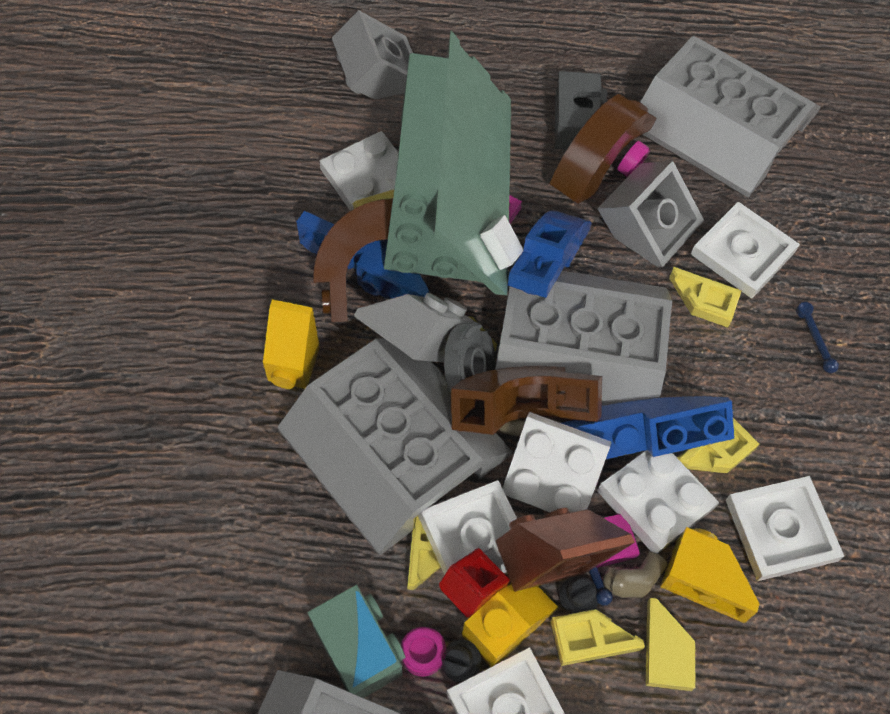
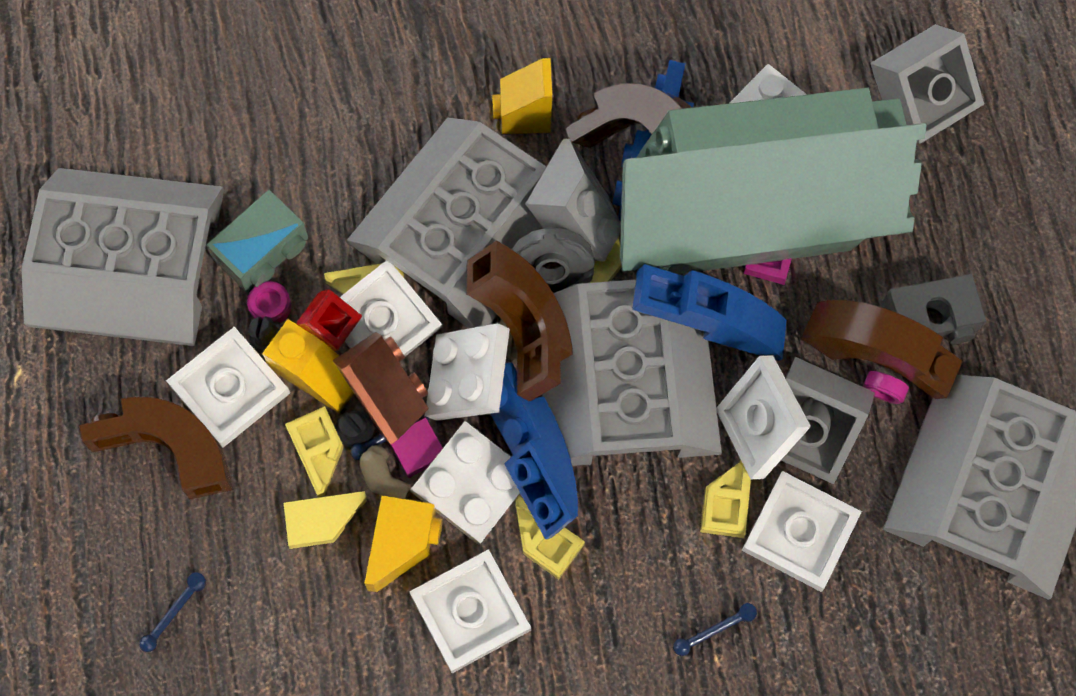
camera: 75 degrees right, 10 degrees up
(502, 242) = (676, 247): white tile -> none
(655, 238) = (762, 417): none -> white plate

